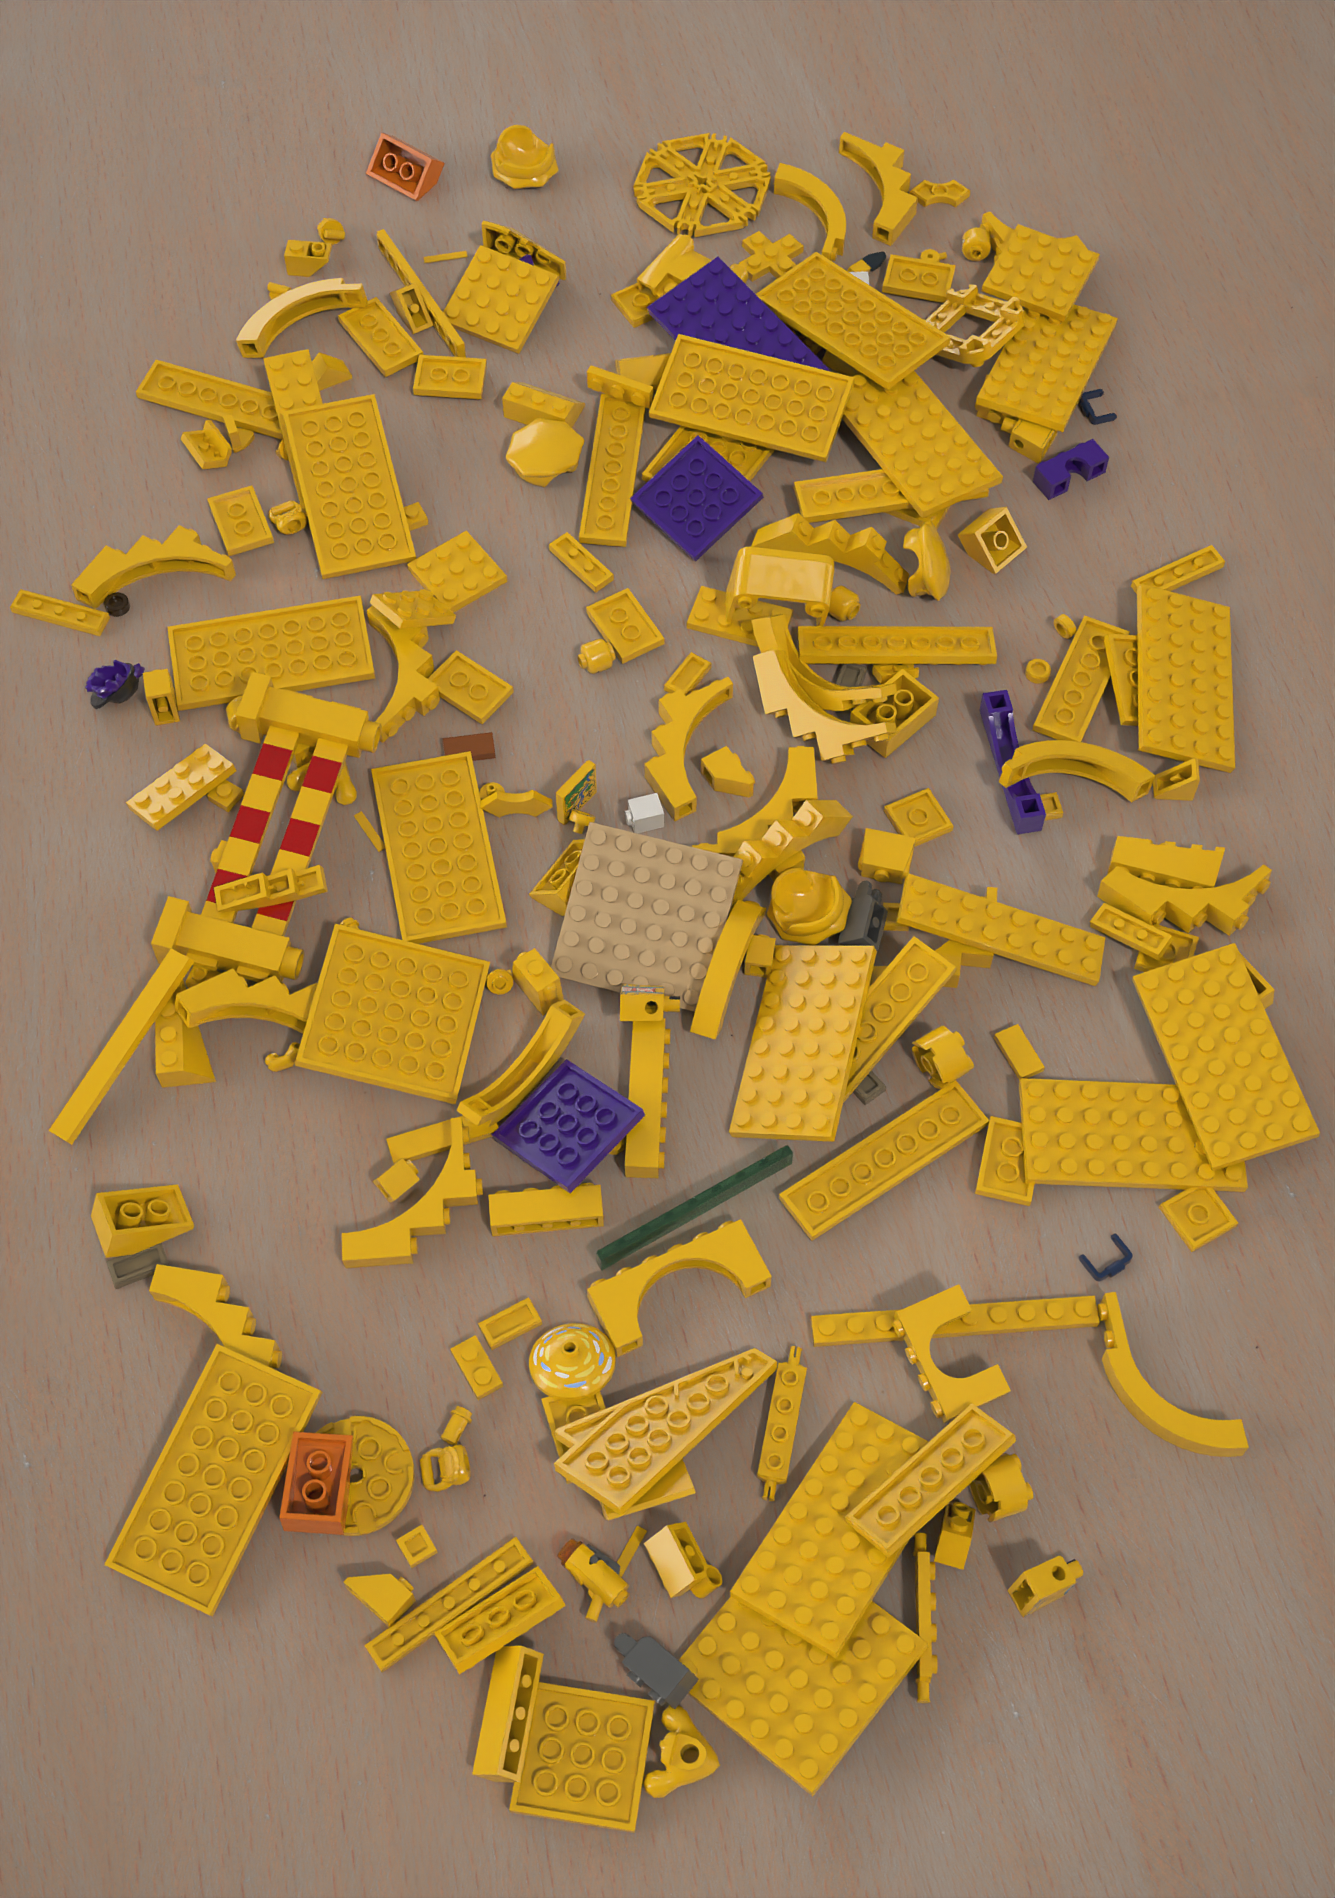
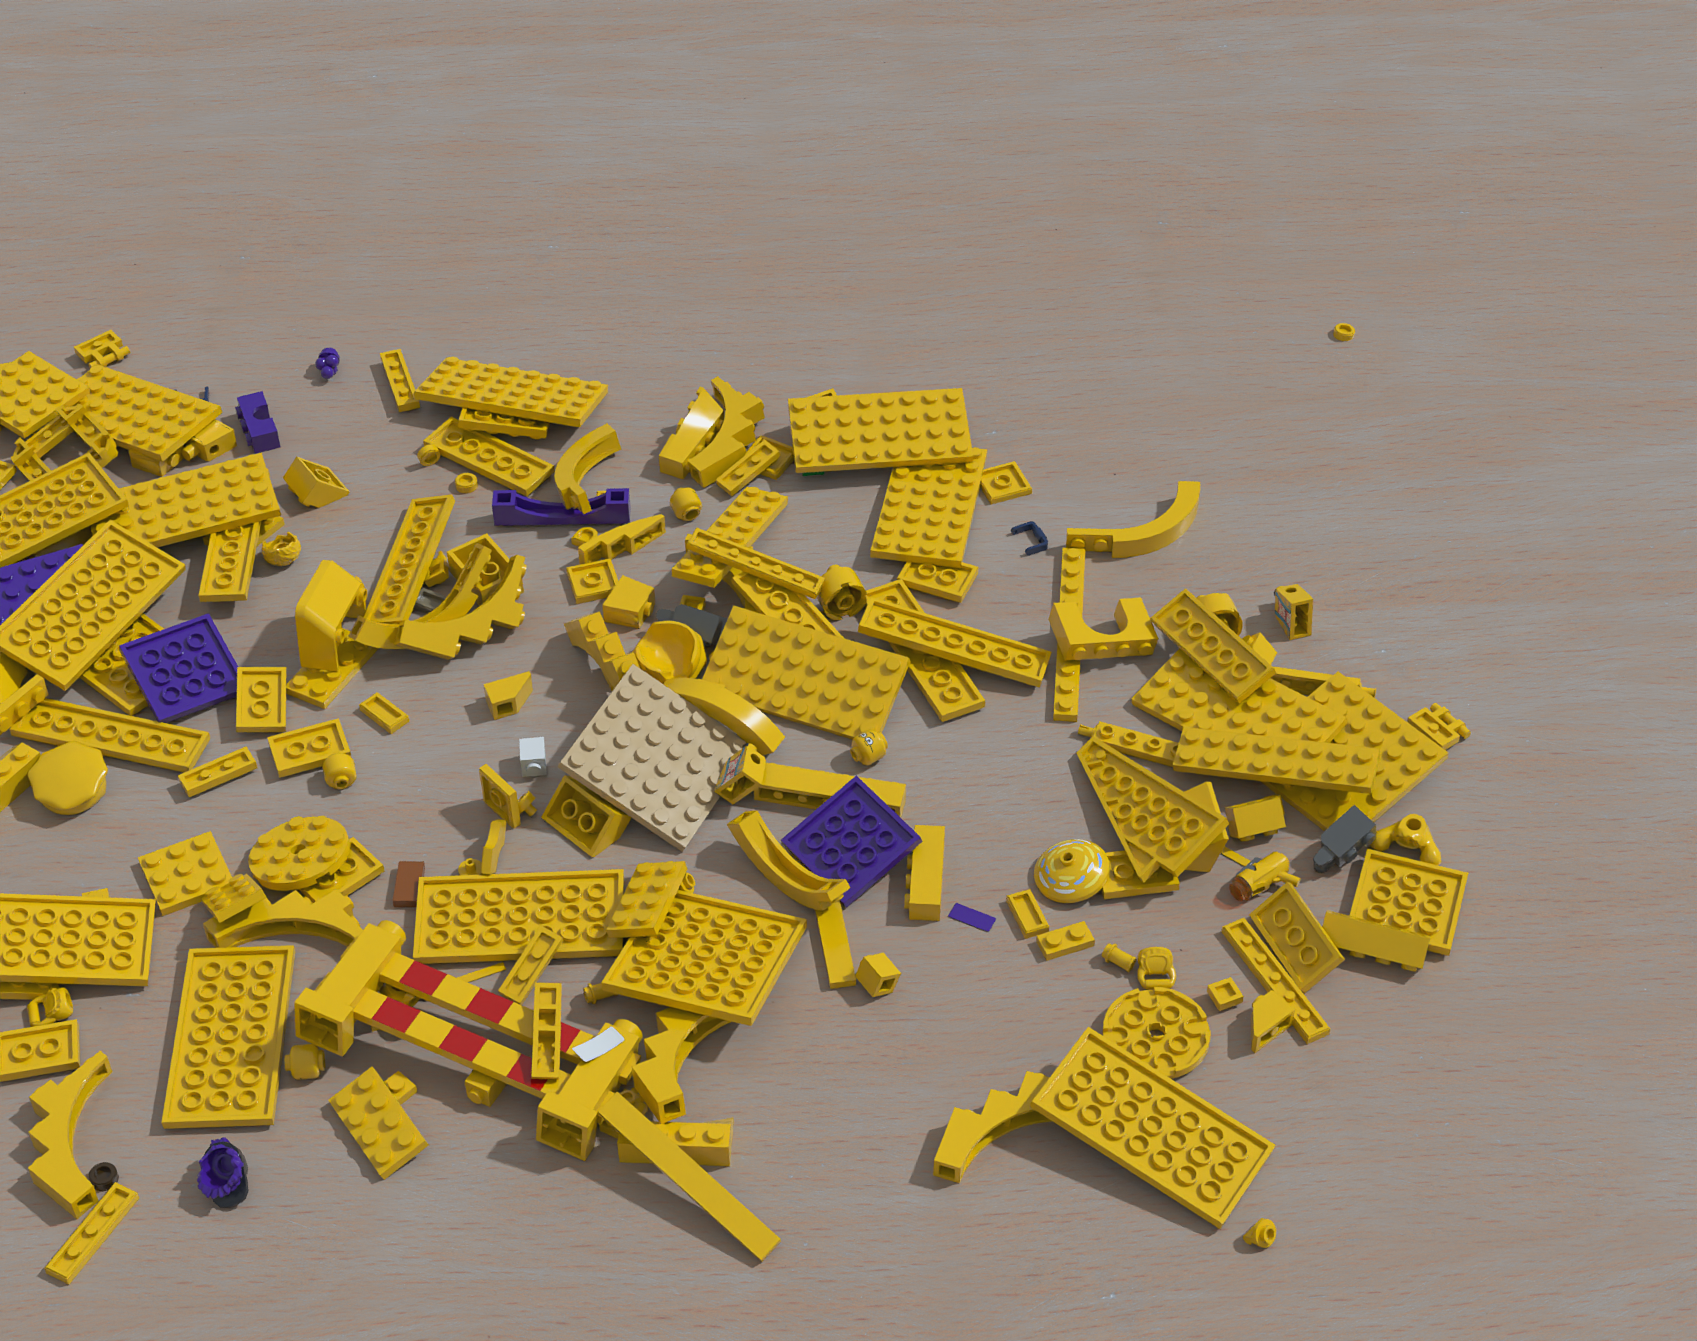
camera: 80 degrees left, 15 degrees down
(101, 1609) = (1261, 1234): none -> yellow plate
(133, 1268) = (922, 1192): dark tan tile -> none
(139, 1218) = (879, 1180): yellow slope -> none
(161, 696) = (261, 1124): yellow brick -> none
(257, 935) = (599, 1045): none -> white sticker
(283, 1062) = (727, 1051): yellow arm -> none
(317, 1483) = (1172, 1040): orange slope -> none
(369, 866) = (530, 965): none -> yellow plate
(393, 1240) = (915, 951): yellow arch -> none
(459, 947) = (647, 899): none -> yellow plate
(461, 652) = (299, 853): none -> yellow plate
(501, 1268) = (972, 917): none -> dark purple sticker
(537, 980) = (696, 847): yellow torso -> none
(675, 570) = (261, 699): none -> yellow plate
(682, 716) = (490, 734): yellow arch -> none
(694, 1207) = (944, 774): clear green tile -> none
(715, 1124) = (868, 747): none -> yellow head
(724, 1251) = (1020, 832): yellow arch -> none
(753, 1576) = (1277, 760): none -> yellow plate
(796, 788) = (545, 652): yellow arch -> none
(859, 550) = (287, 575): yellow arch -> none
(877, 1782) = (1433, 725): none -> yellow plate
(889, 531) = (281, 550): none -> yellow hair
(889, 1191) = (954, 642): none -> yellow plate
(934, 566) = (330, 513): yellow piece -> none
(937, 954) = (755, 563): none -> yellow tile
(982, 798) = (583, 535): none -> yellow tile
(987, 835) = (627, 538): none -> yellow slope
(1019, 1052) = (839, 555): yellow tile -> none
(1054, 880) = (685, 504): none -> yellow head
(1145, 312) = (101, 345): none -> yellow plate
(1177, 782) = (613, 411): yellow slope -> none
(1181, 505) = (327, 362): none -> dark purple piece

